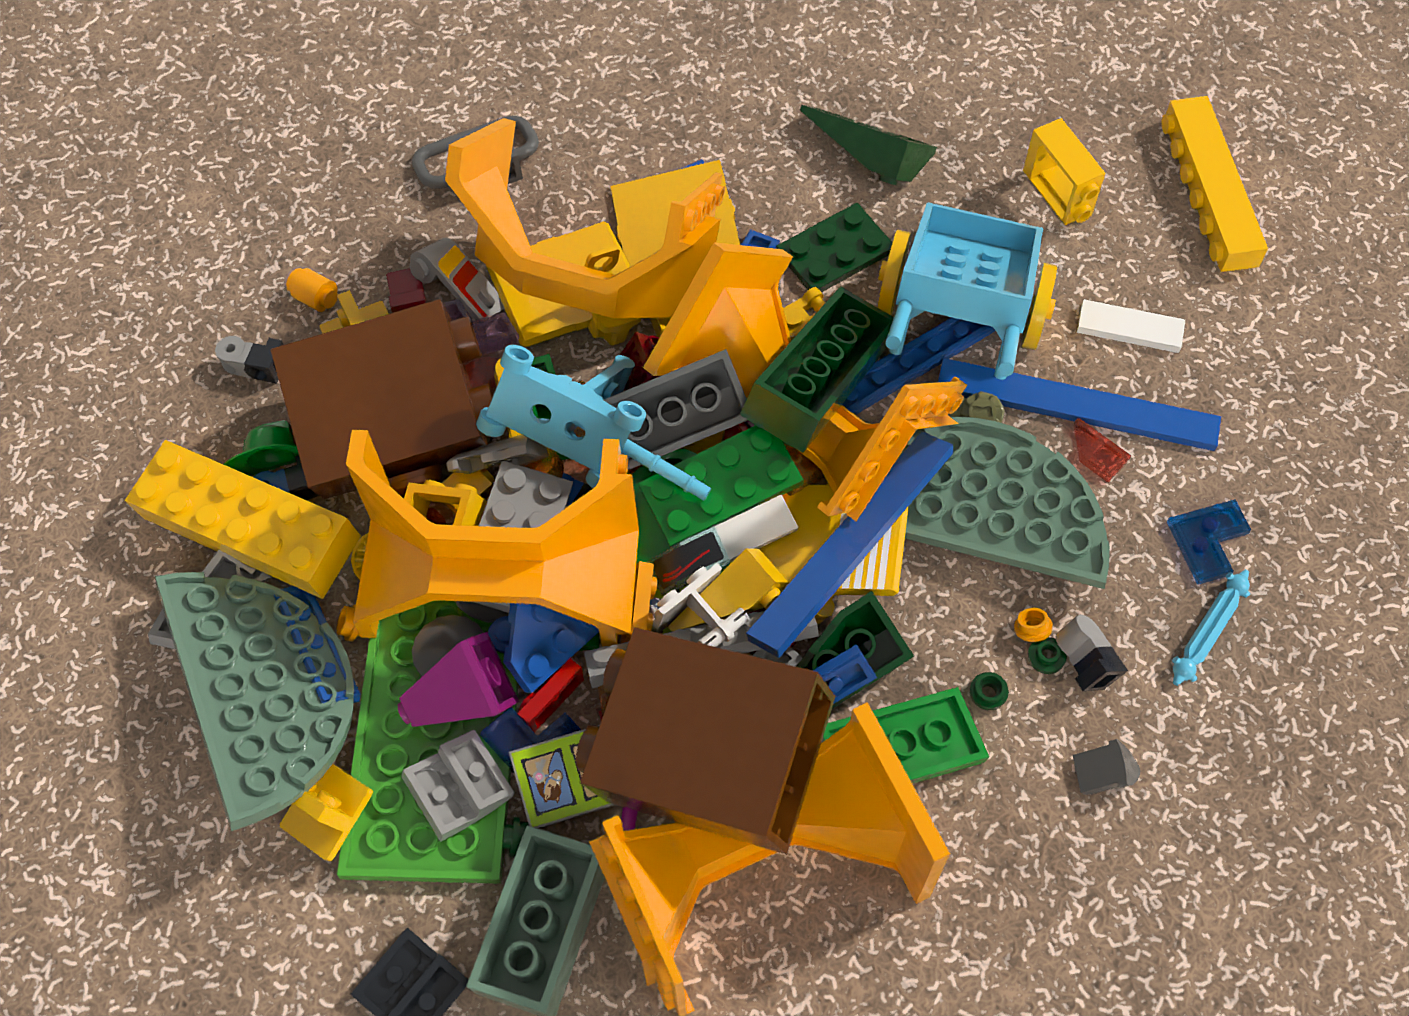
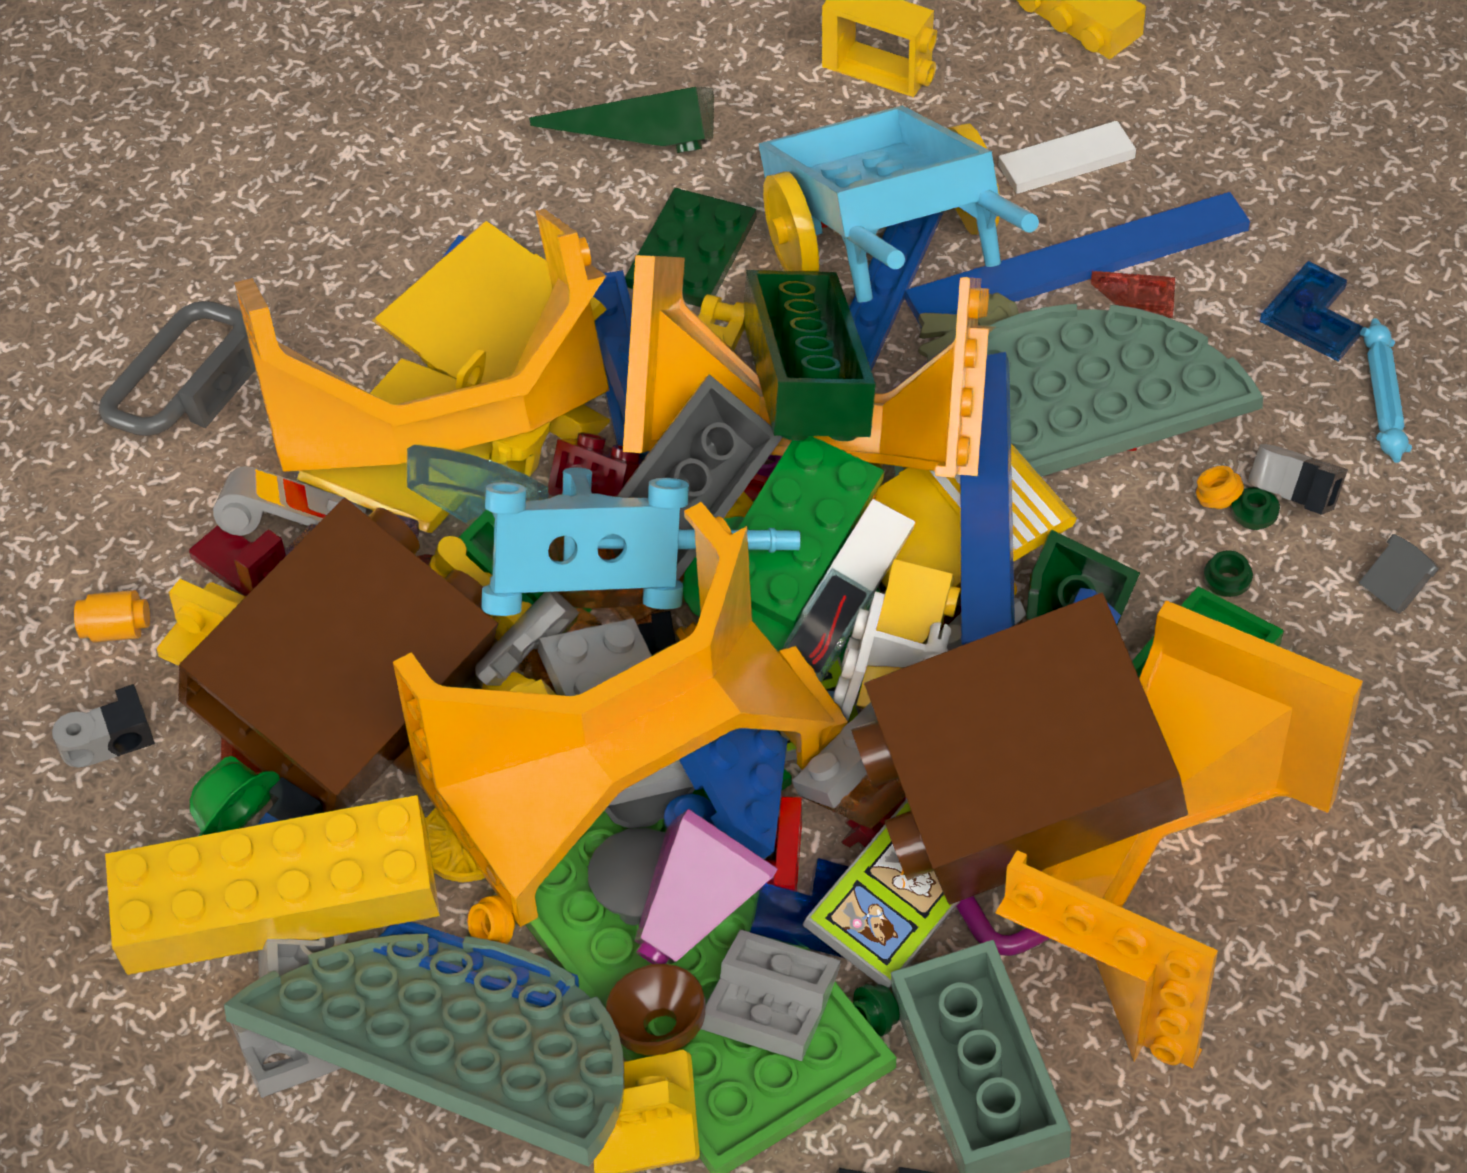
camera: 35 degrees left, 10 degrees down
(371, 736) = (654, 993): none -> reddish brown piece
(560, 335) = (460, 480): none -> clear light blue slope

